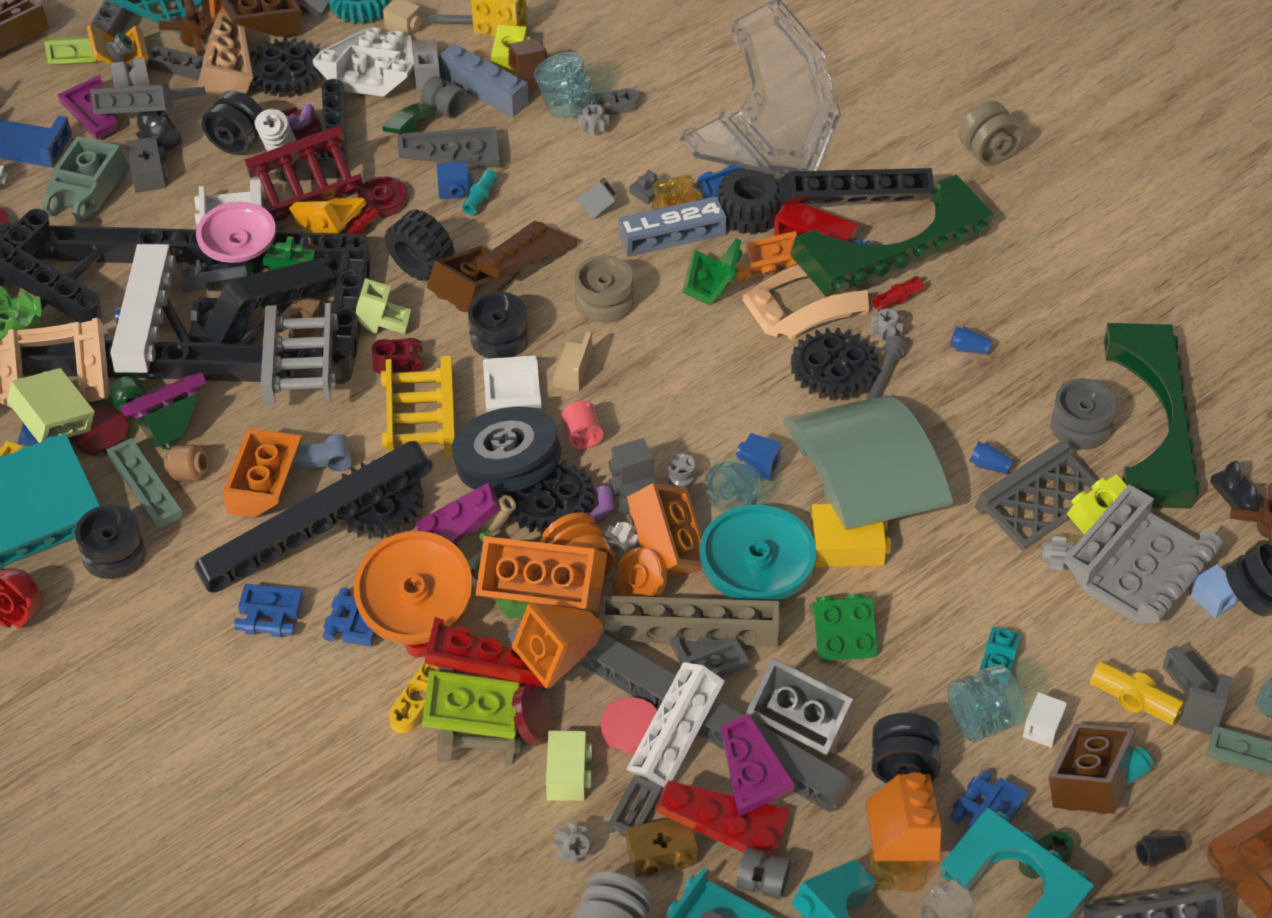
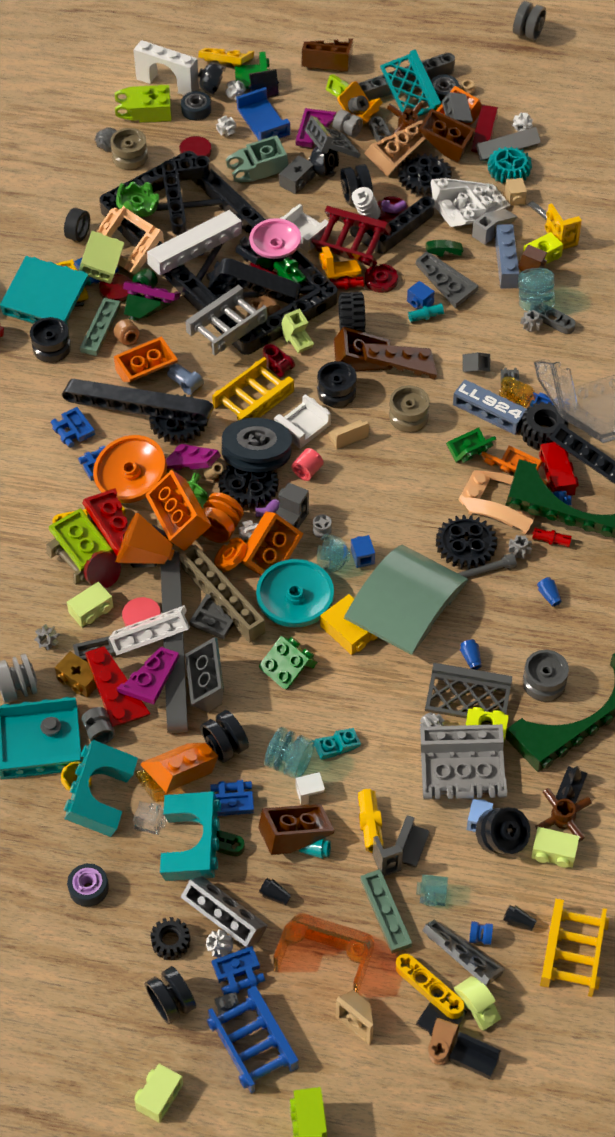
camera: 50 degrees right, 5 degrees up
(444, 97) = (474, 249): dark grey wheel -> none

